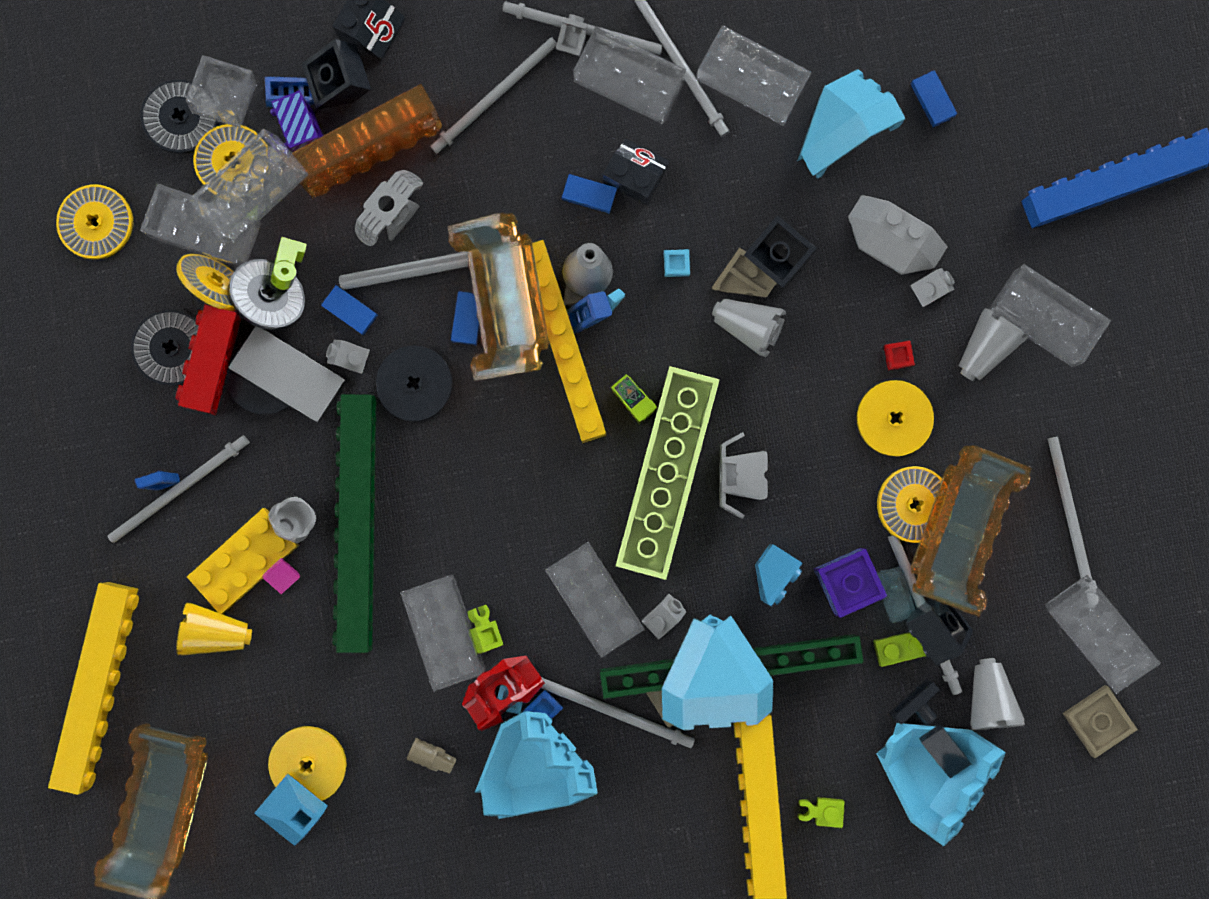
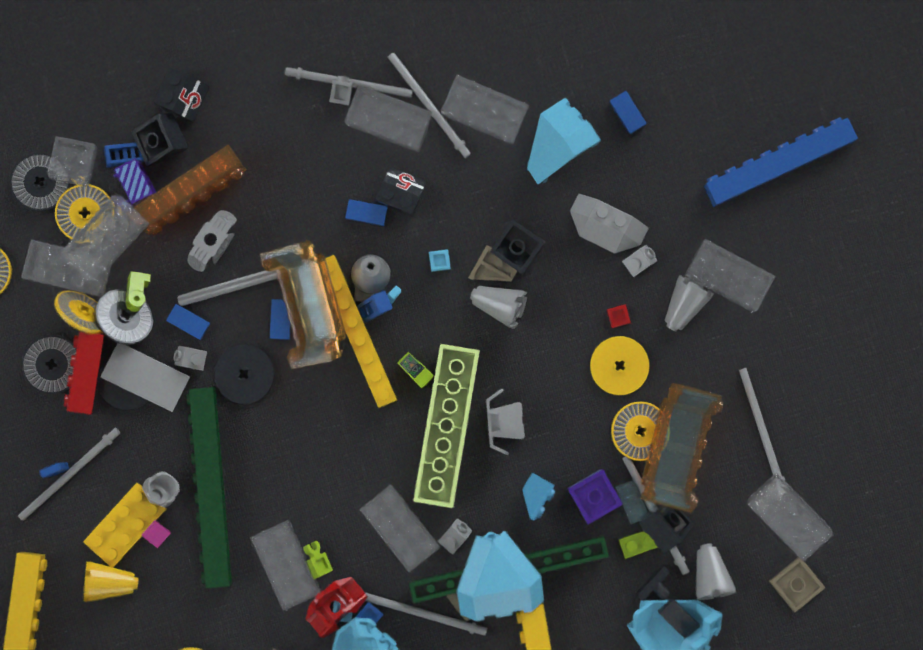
camera: 10 degrees left, 0 degrees up
(497, 92) = (250, 179): light grey bar -> none

